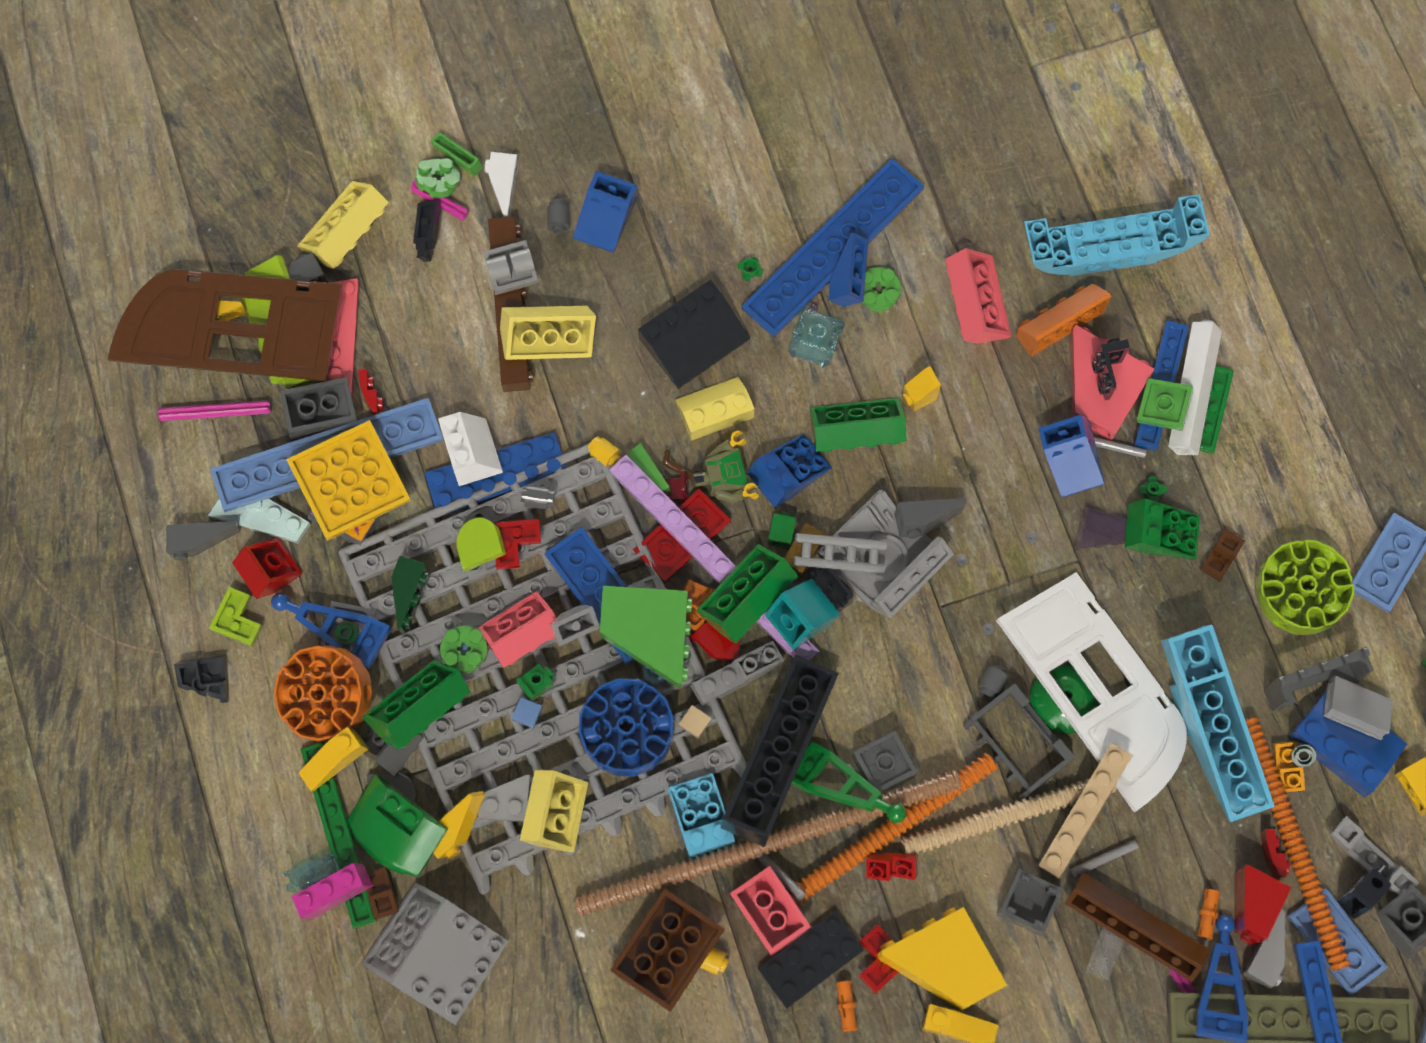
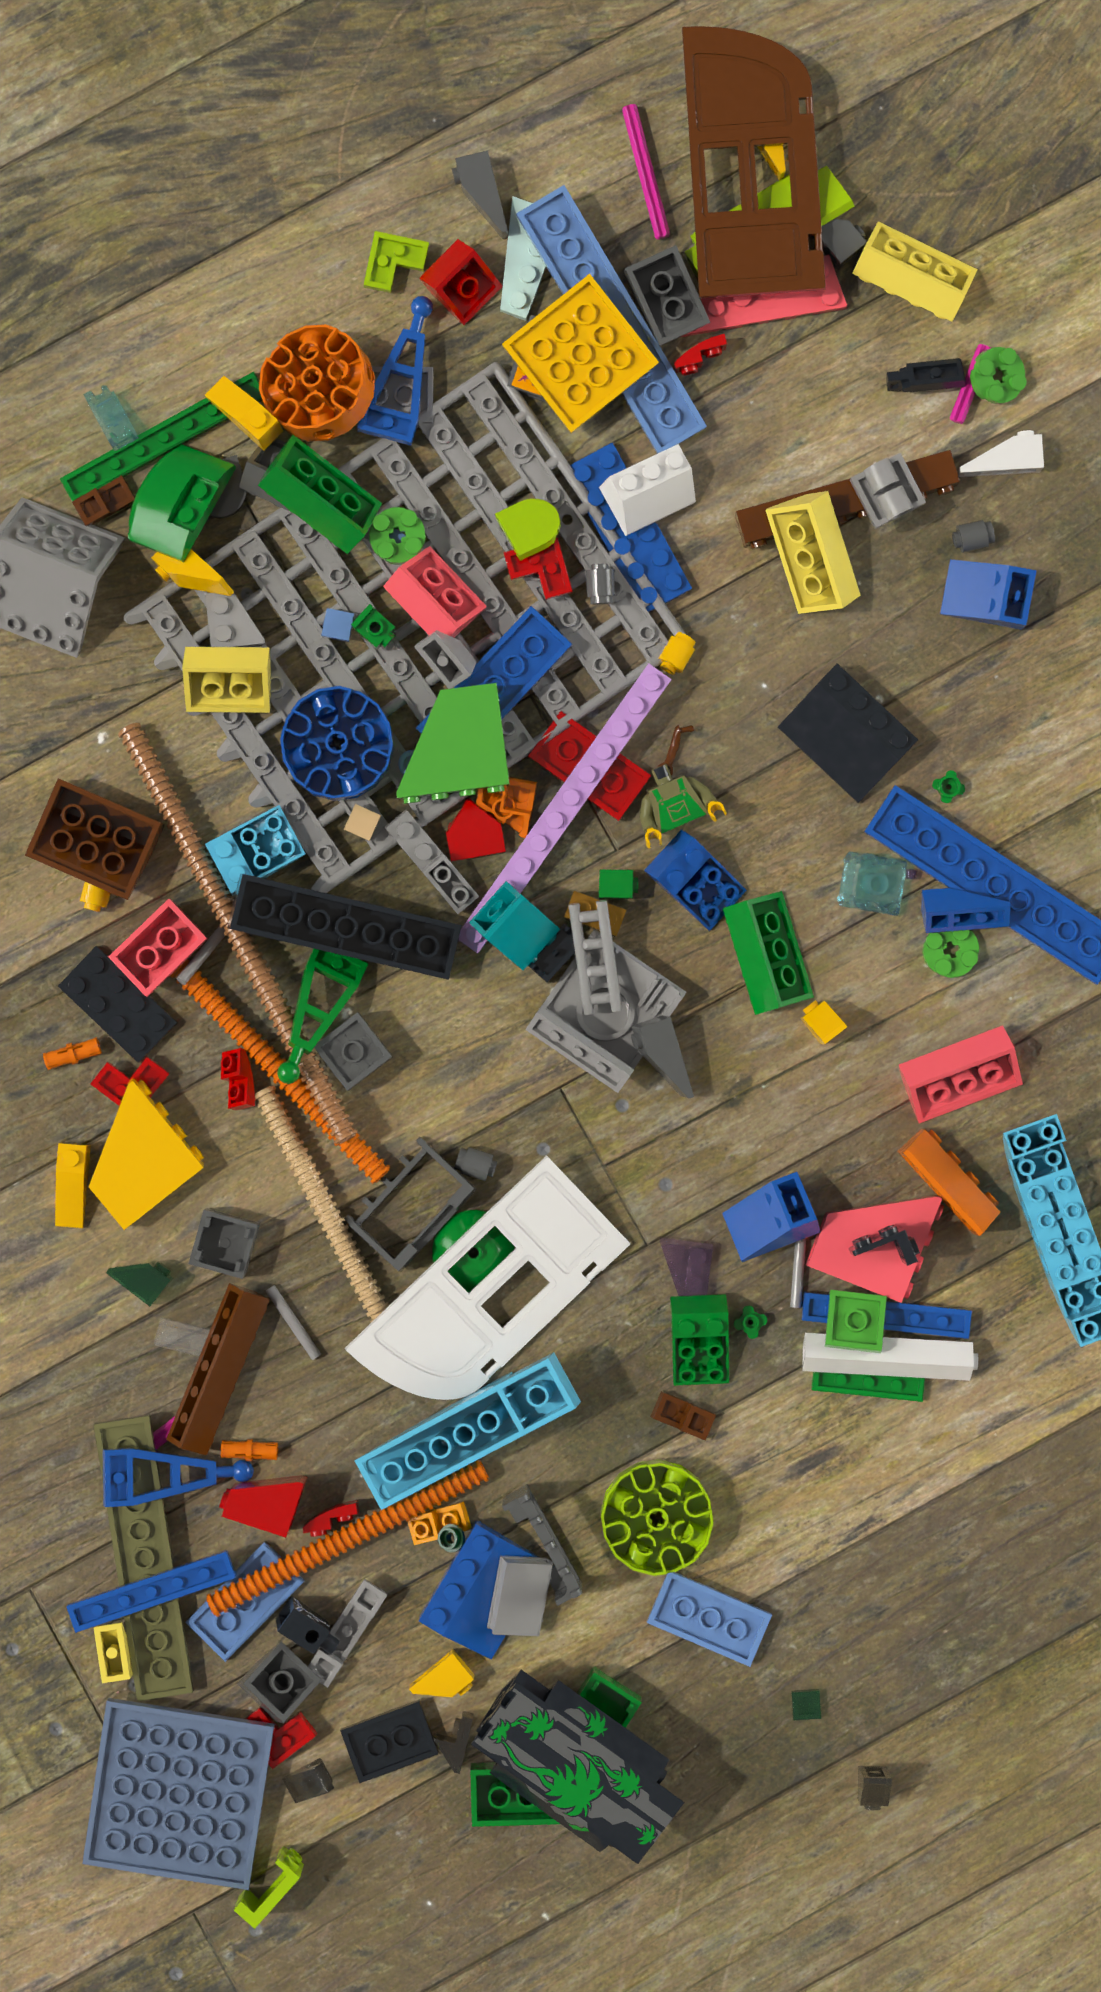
camera: 75 degrees right, 15 degrees up
(204, 676) = (318, 239): black slope -> none
(332, 891) = (93, 445): dark pink brick -> none
(351, 638) = (391, 402): dark green plate -> none
(406, 584) = (462, 451): dark green slope -> none
(457, 154) = (1036, 392): bright green piece -> none
(644, 462) = (672, 702): bright green piece -> none
(678, 487) = (647, 745): dark red bracket -> none
(715, 408) = (759, 775): light yellow slope -> none
(747, 593) = (525, 855): green slope -> none
(1050, 978) = (143, 1279): none -> clear green slope
(1085, 810) = (338, 1292): tan plate -> none
(1269, 957) = (204, 1523): light grey slope -> none

